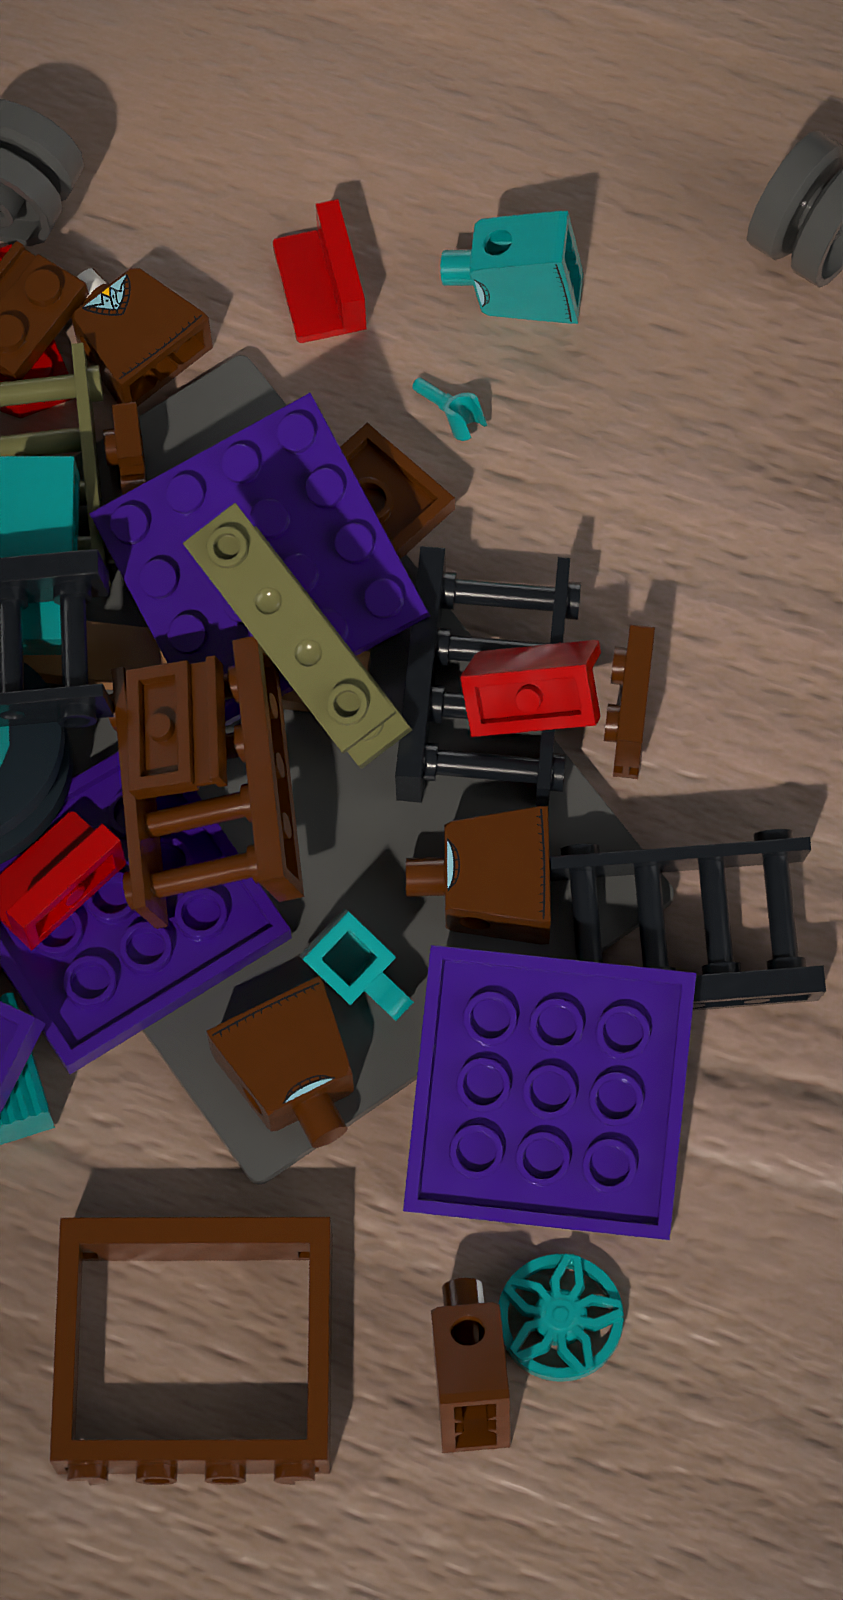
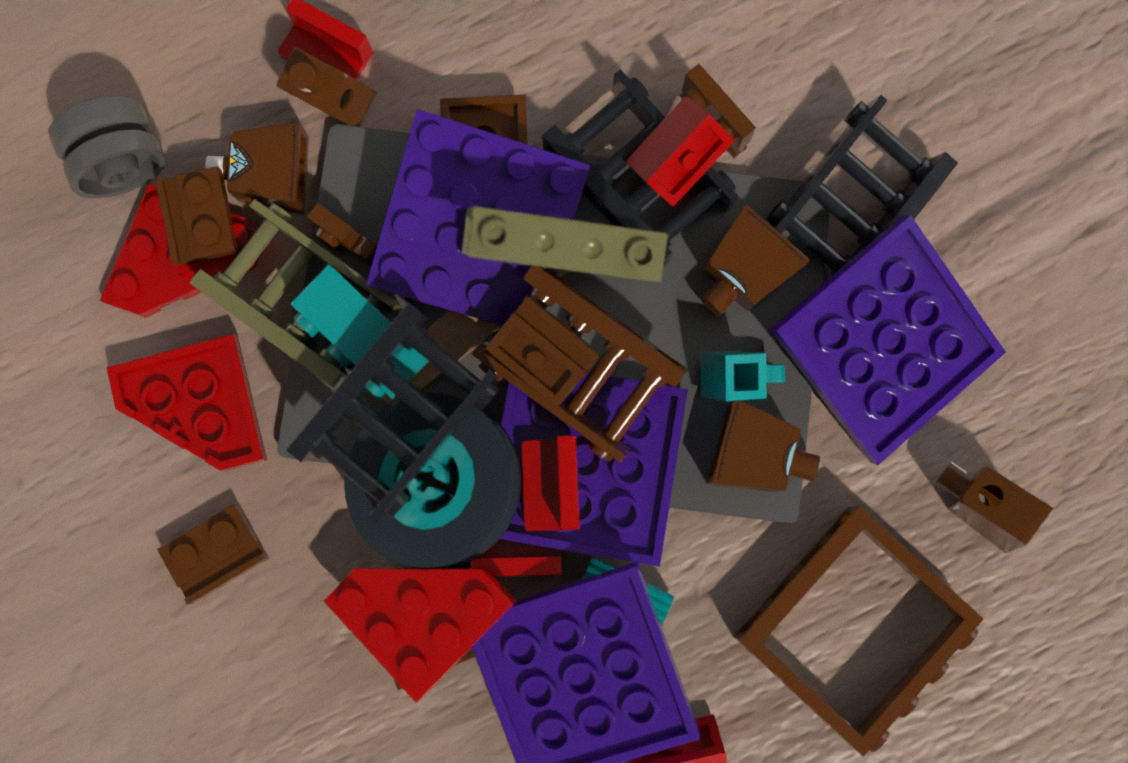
camera: 45 degrees left, 15 degrees up
(266, 294) = (324, 86): none -> reddish brown torso
(459, 409) = (467, 48): teal hand -> none
(561, 1317) = (992, 436): teal wheel -> none

